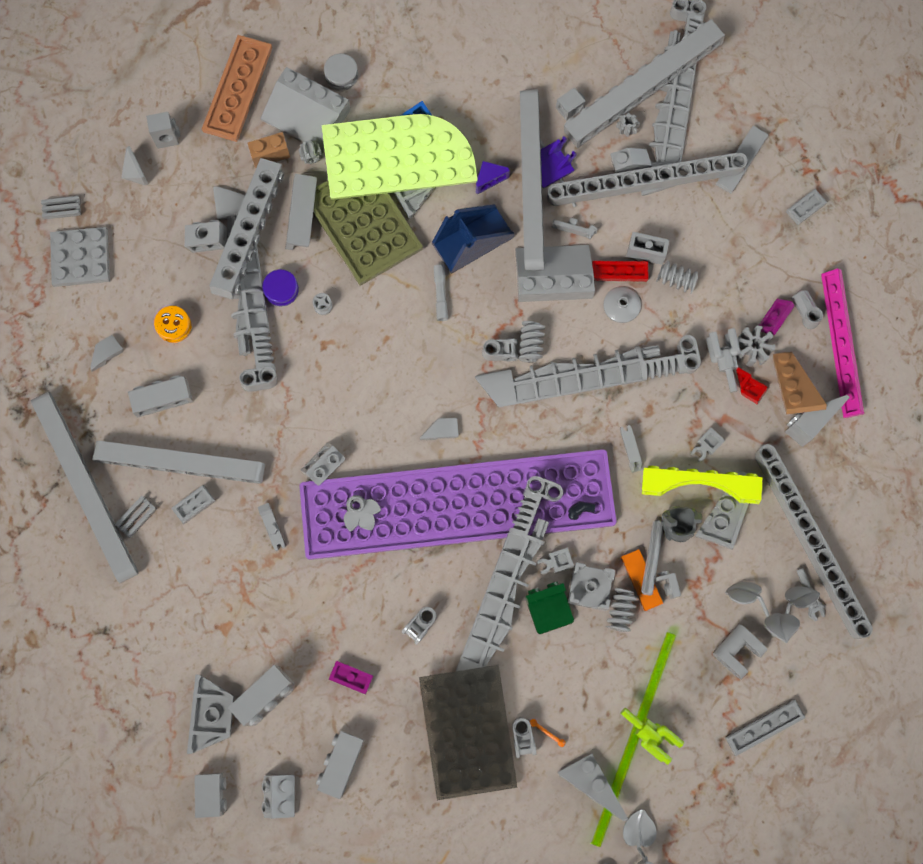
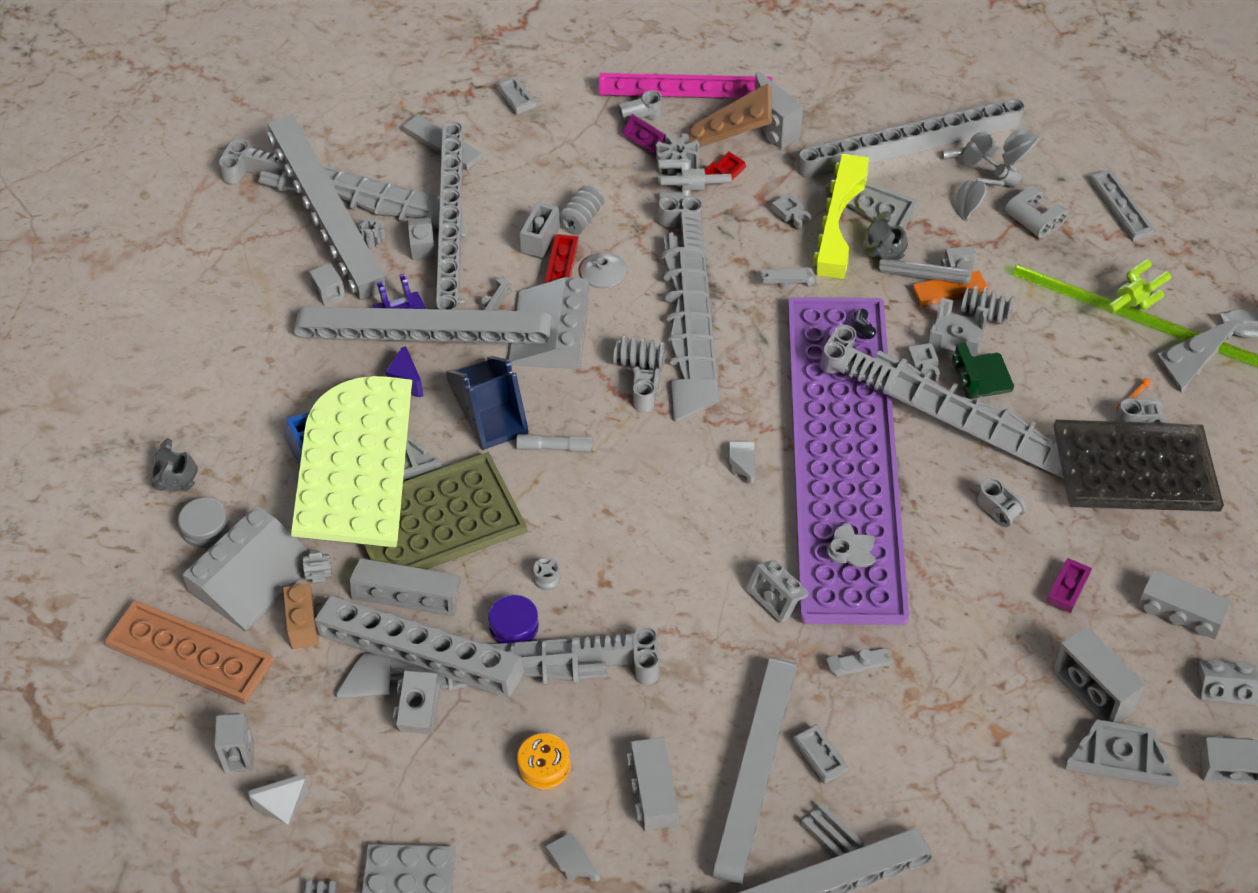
camera: 80 degrees left, 25 degrees down
(378, 40) = (172, 469): none -> dark grey helmet

